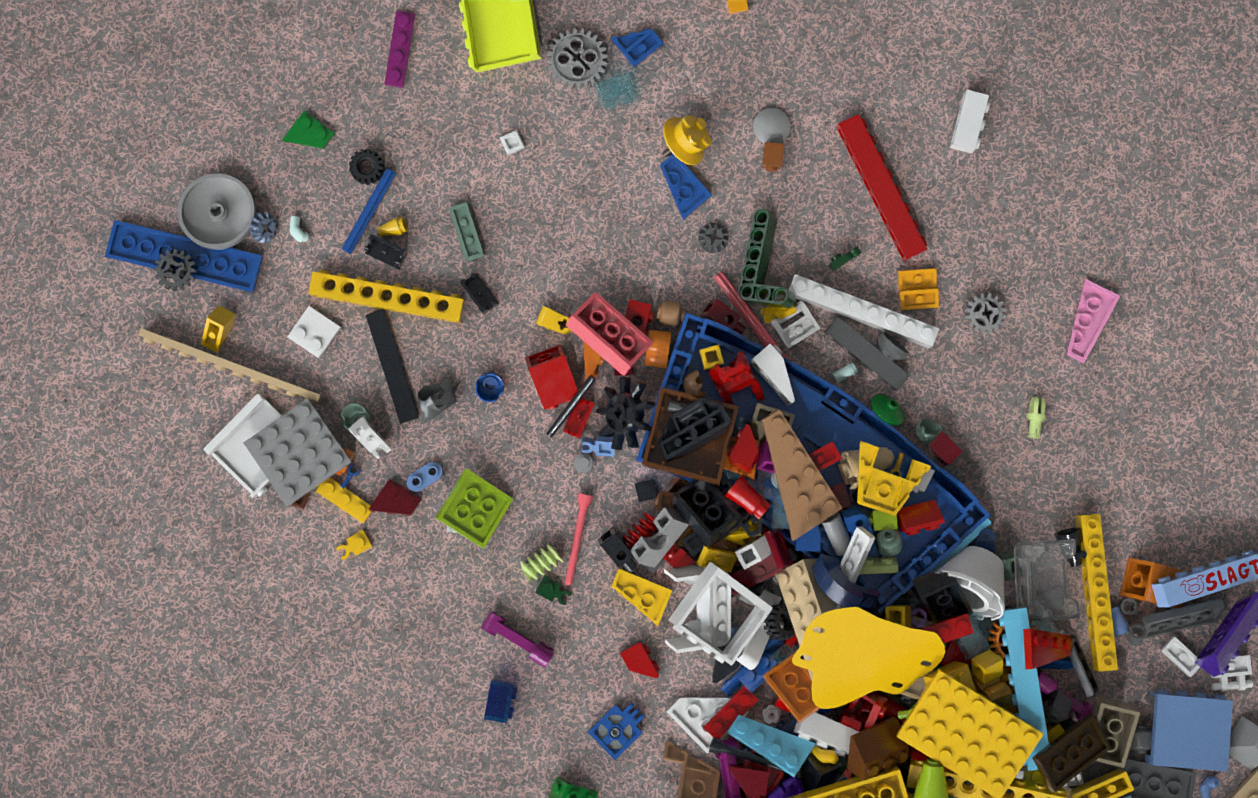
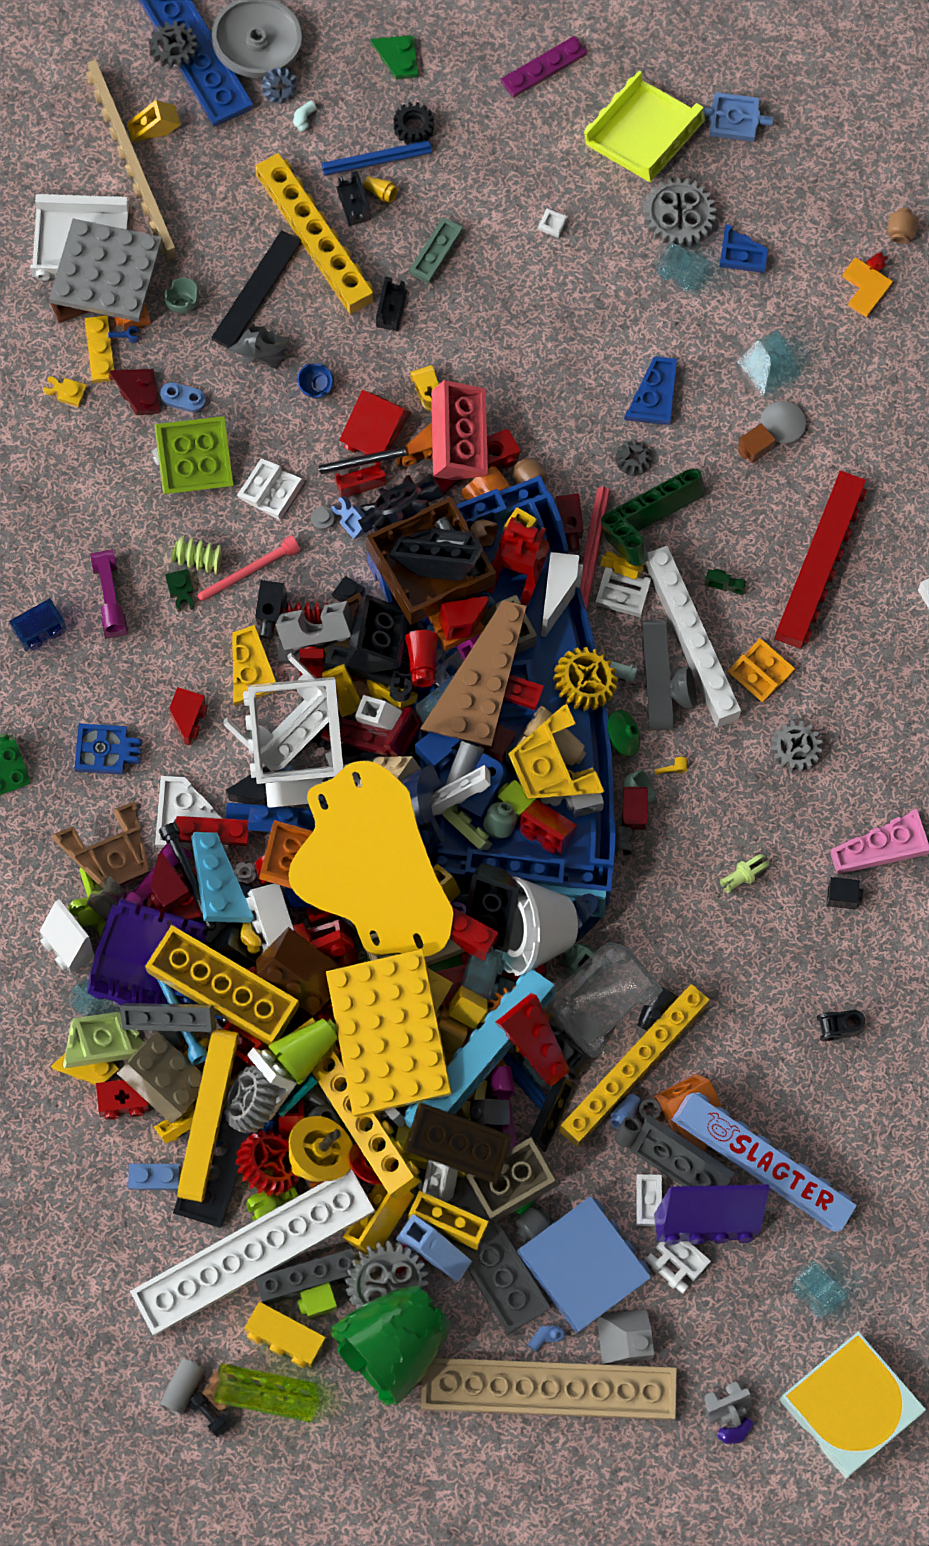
camera: 45 degrees right, 15 degrees down
(314, 332) = (225, 202): white plate -> none
(369, 437) = (175, 317): white hinge -> none
(535, 477) = (270, 489): none -> white slope
(686, 138) = (697, 354): yellow piece -> none
(728, 99) = (770, 363): none -> clear light blue slope
(844, 421) = (571, 666): none -> yellow gear
(934, 392) = (679, 766): none -> yellow hand
(1058, 626) = (572, 1054): none -> black piece
(1100, 371) = (844, 893): none -> black brick
(1174, 451) = (838, 1025): none -> black piece

